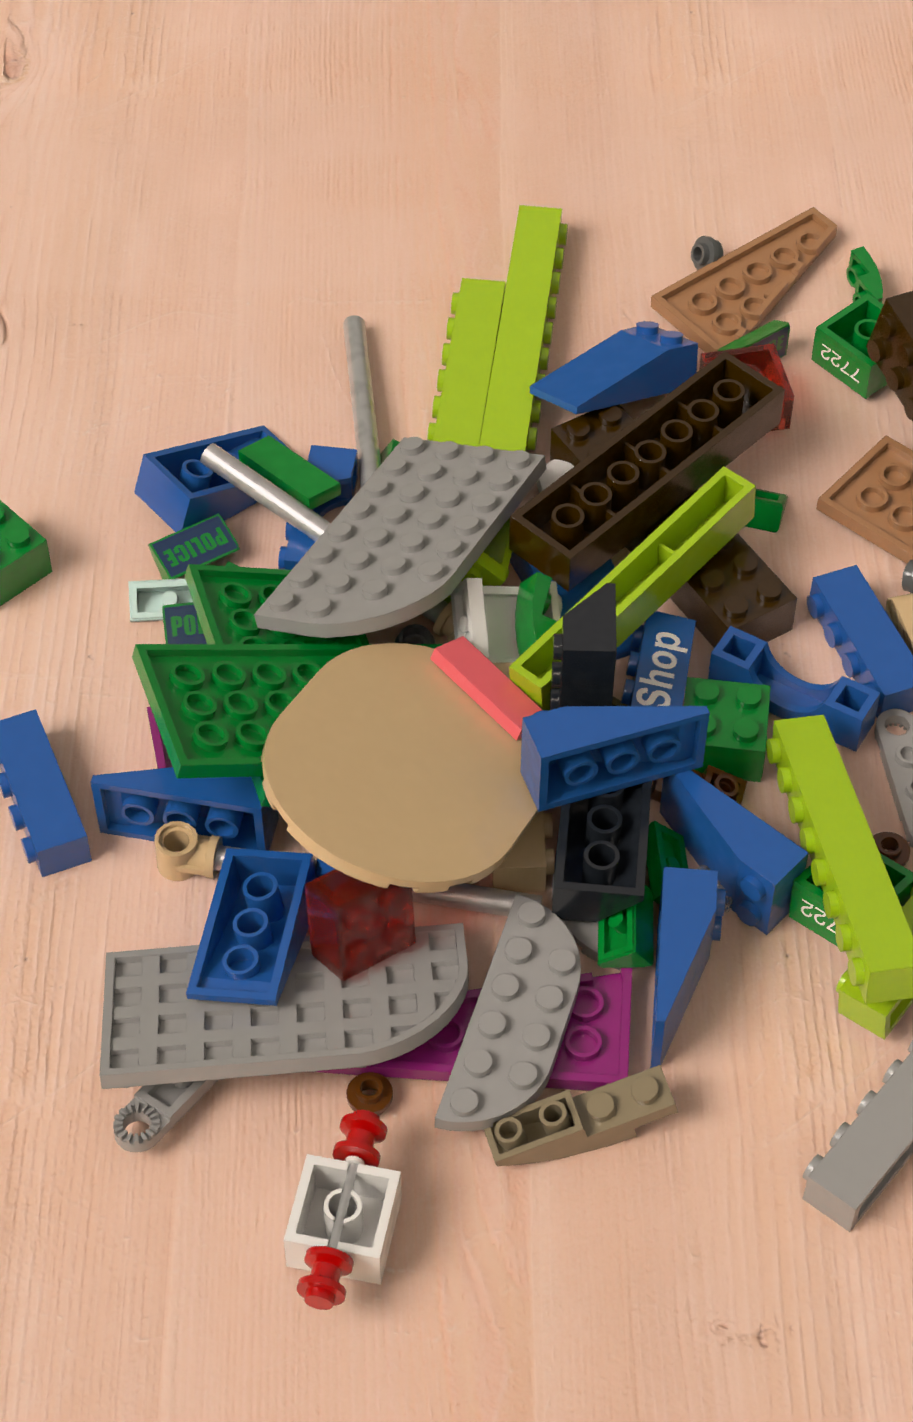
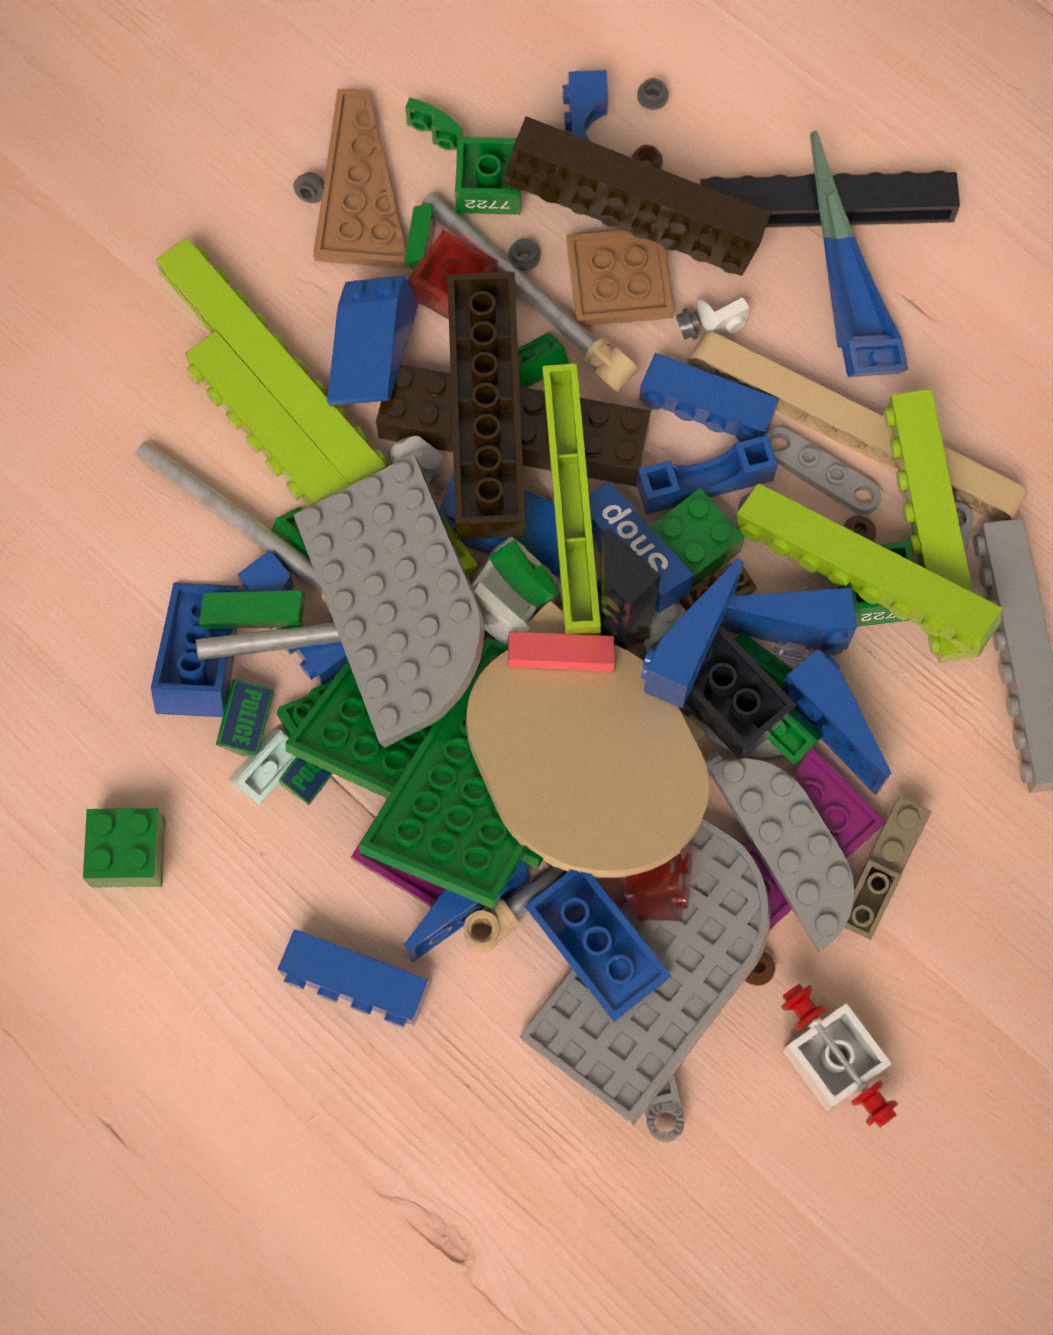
camera: 45 degrees left, 20 degrees up
(808, 546) = (609, 363): none -> flat silver piece
(833, 425) = (528, 247): none -> dark grey plate

